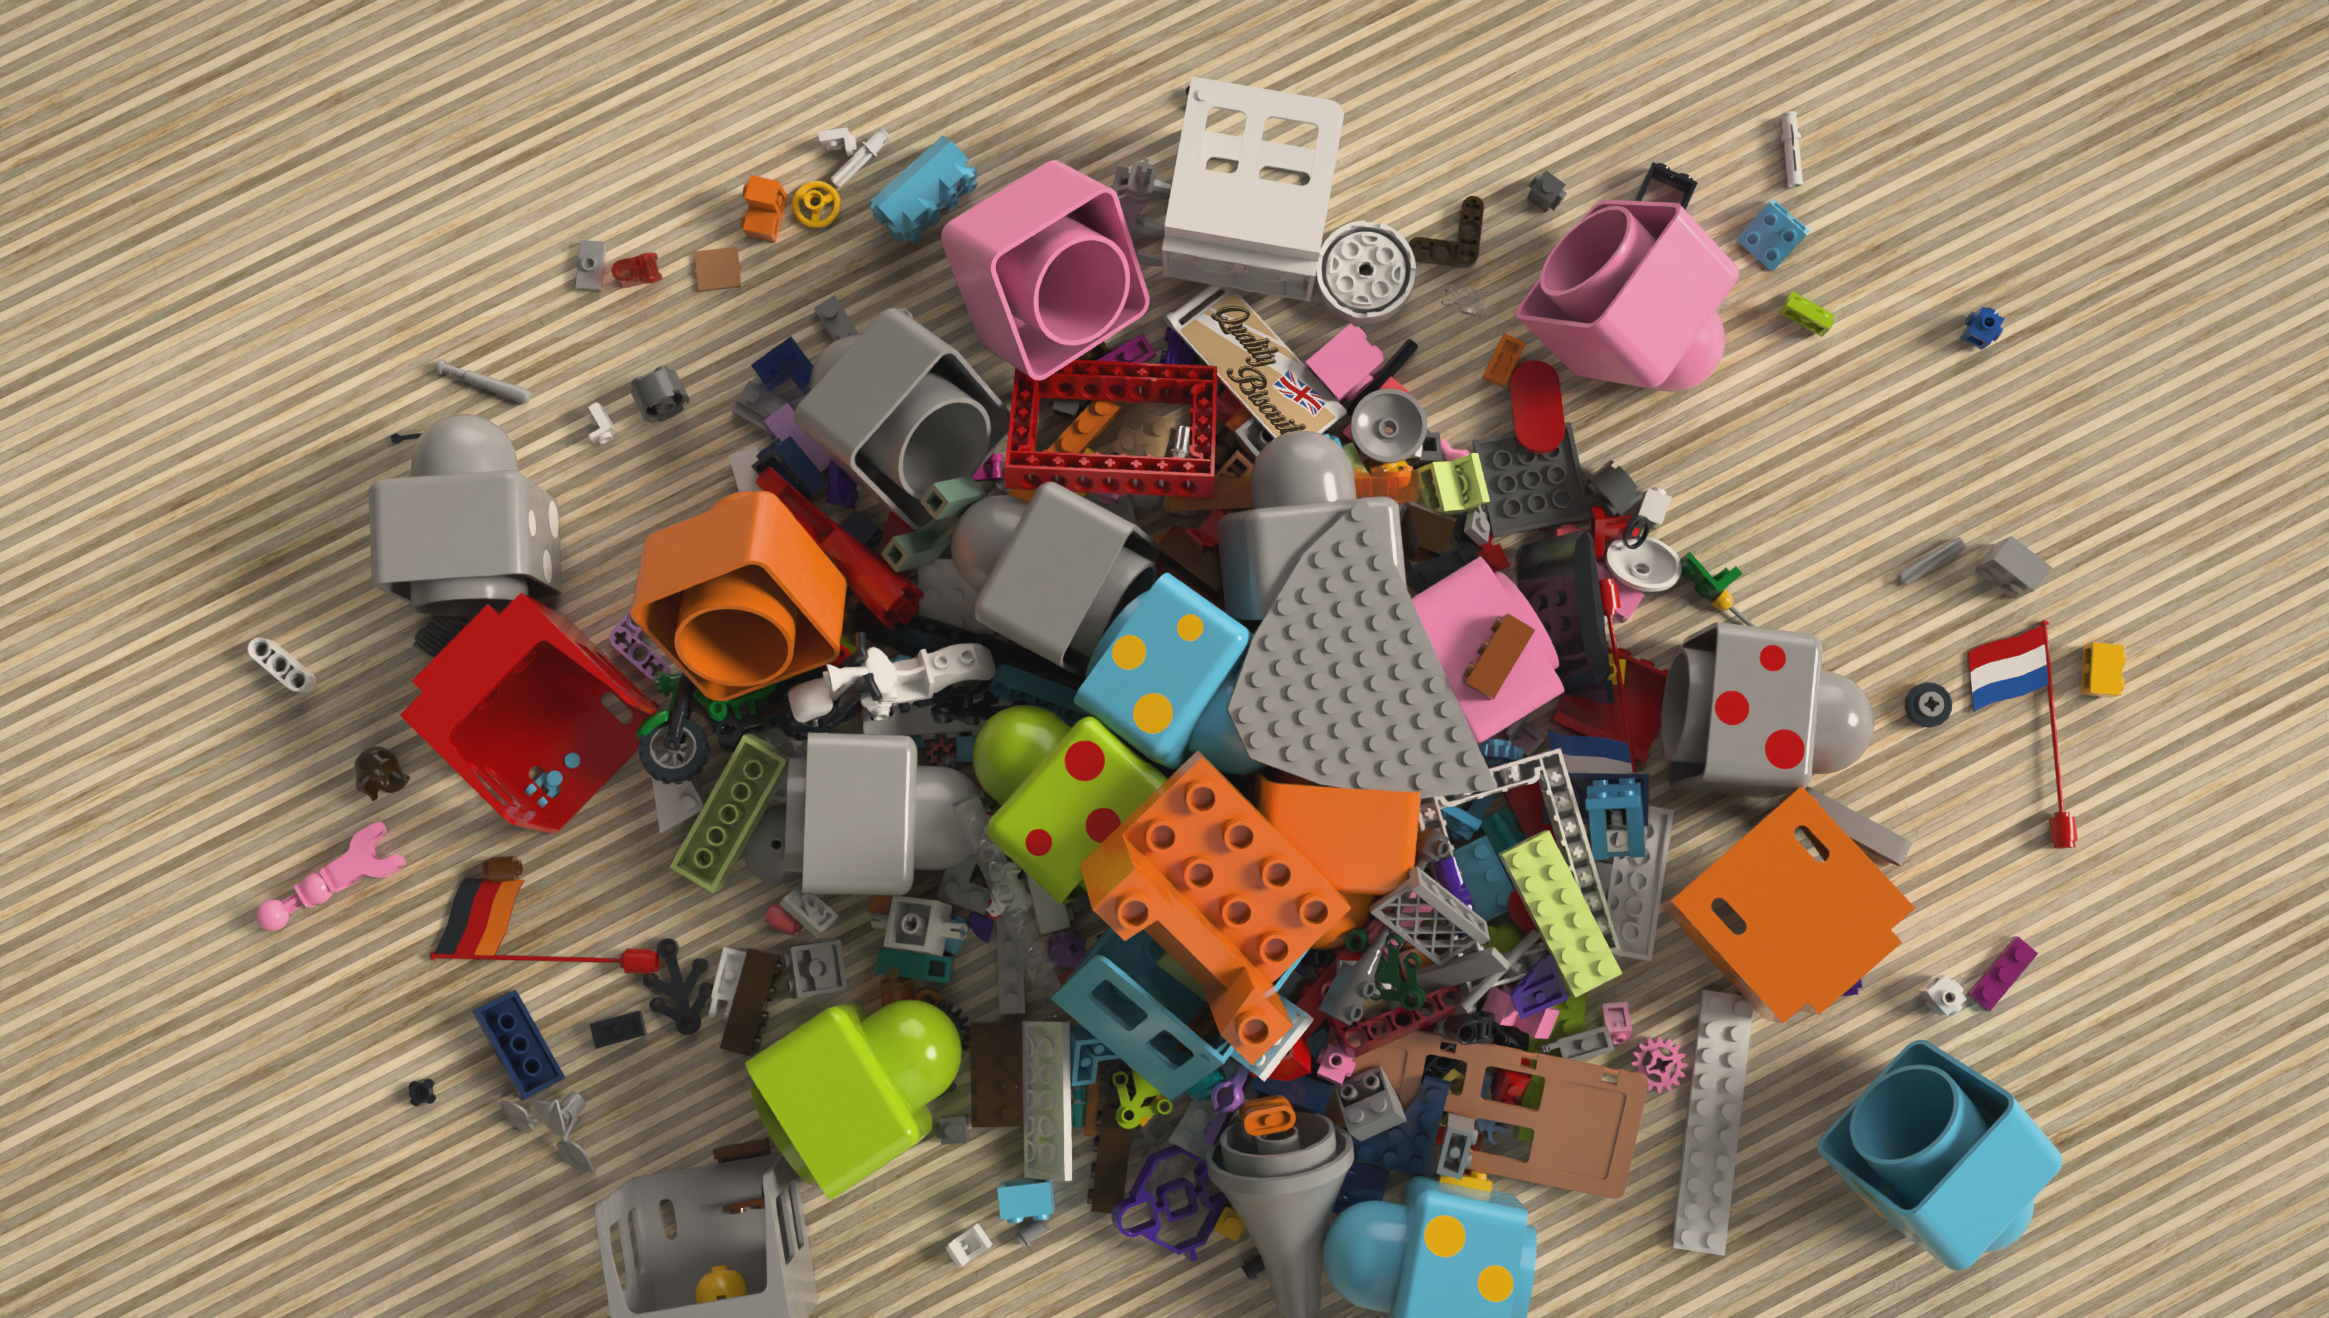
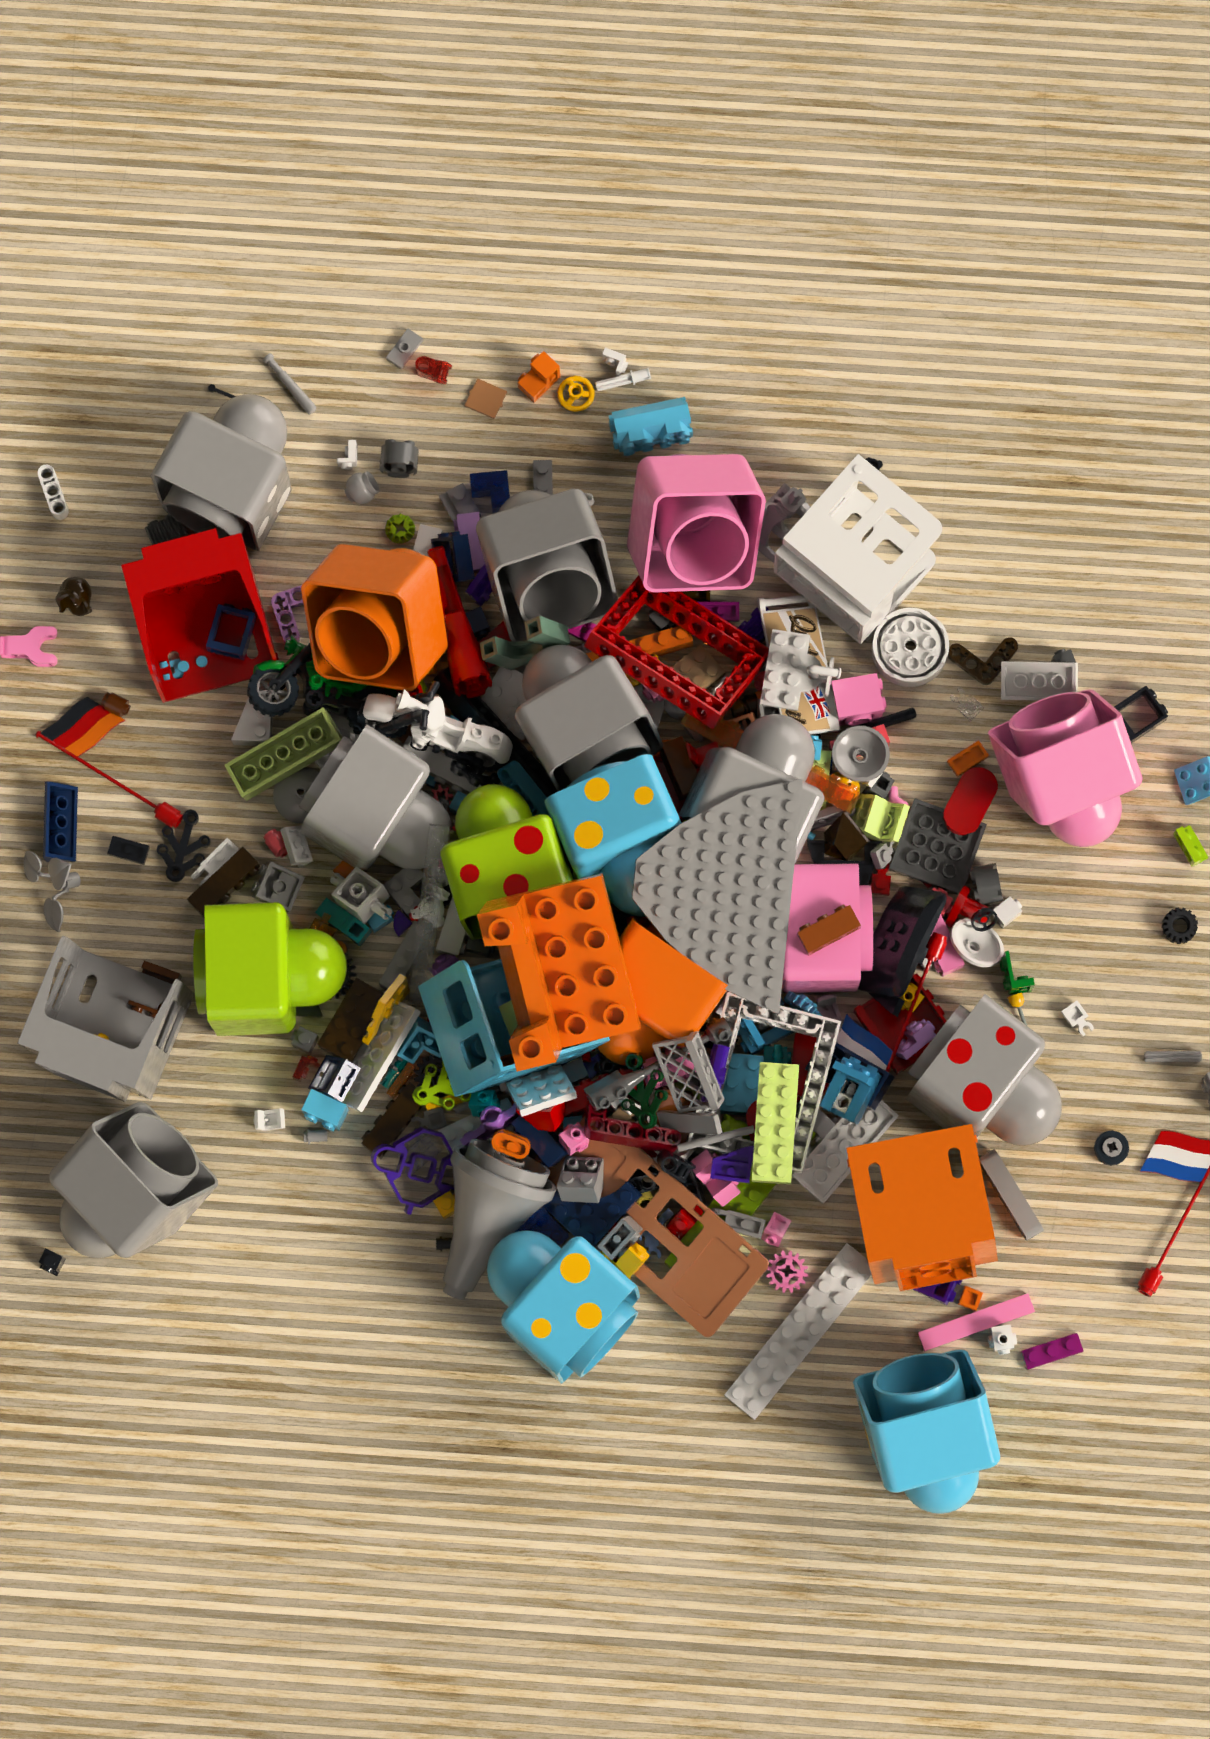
camera: 30 degrees right, 5 degrees down
(592, 731) = (226, 649): none -> dark blue window
(636, 453) = (361, 488): none -> light grey piece
(716, 481) = (401, 536): none -> lime gear
(970, 1163) = (301, 1070): none -> clear red bracket
(1011, 1147) = (333, 1069): none -> window
(1026, 1040) = (394, 995): none -> yellow wing
(1251, 378) = (789, 670): none -> white plate
(1484, 1162) = (632, 1259): none -> yellow brick
(1531, 226) = (1037, 679): none -> white plate
(1645, 713) = (918, 1035): none -> lavender plate
(1798, 579) = (1075, 1016): none -> white plate
(1857, 397) = (1187, 917): none -> black tyre
(1880, 972) = (970, 1298): none -> orange tile
(1899, 992) = (976, 1322): none -> bright pink tile

